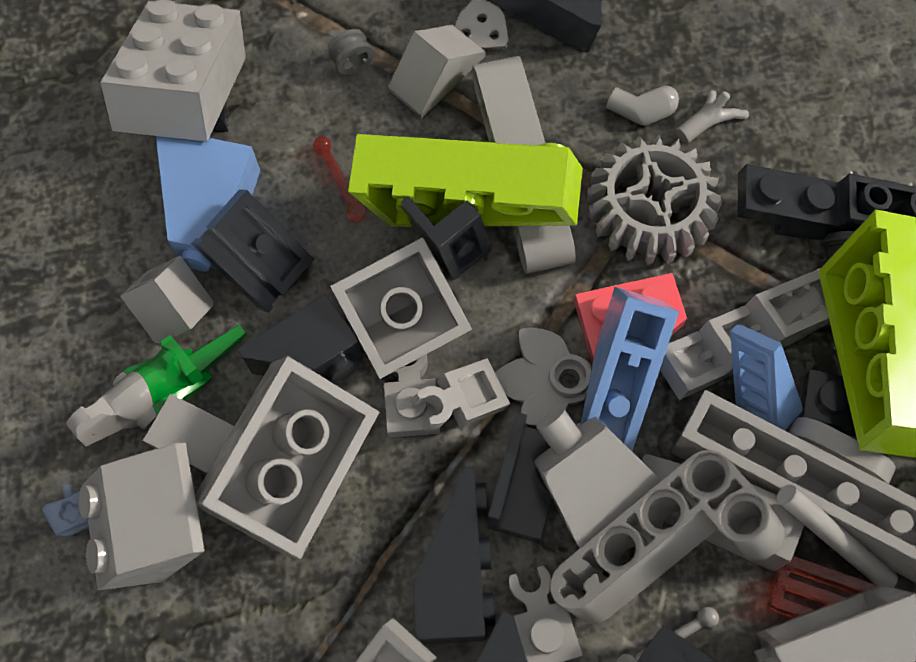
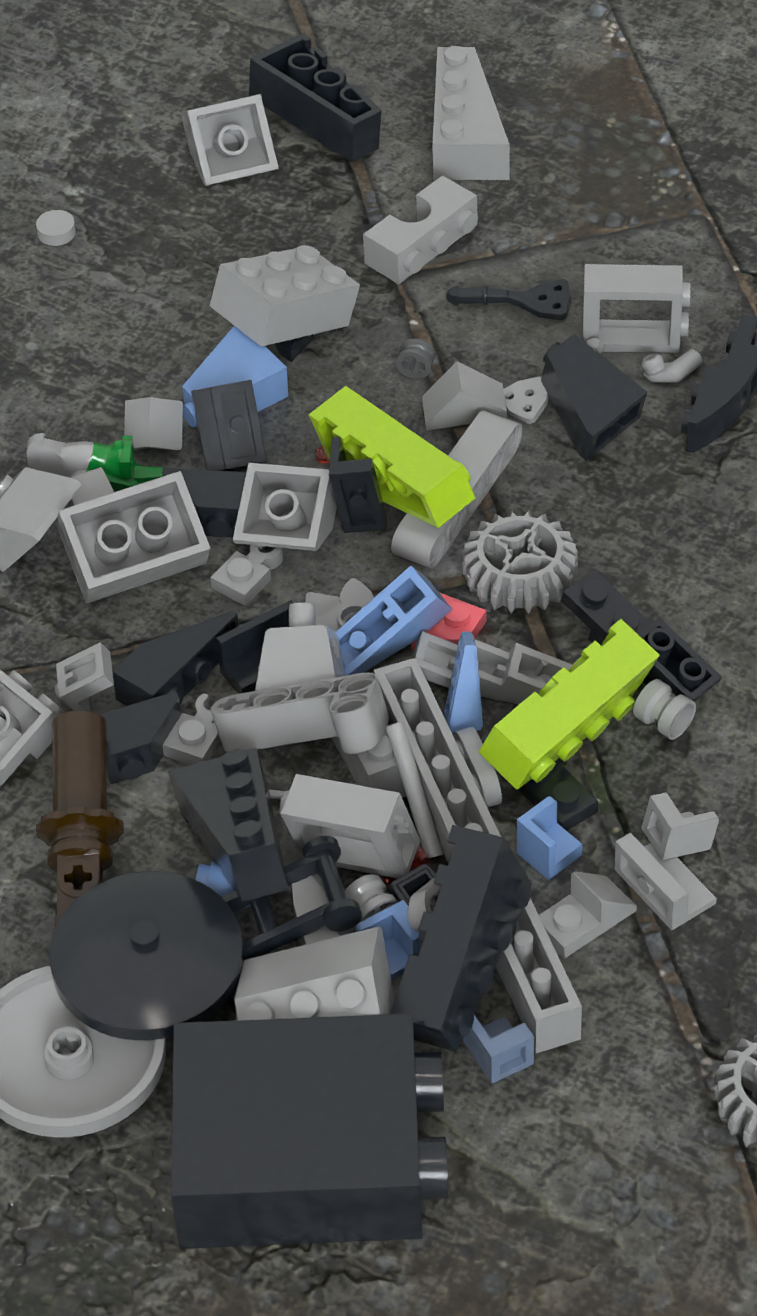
camera: 40 degrees right, 20 degrees down
(466, 393) = (275, 584): light grey plate -> none
(645, 108) = (583, 512): light grey arm -> none
(709, 115) = (621, 543): light grey bar -> none

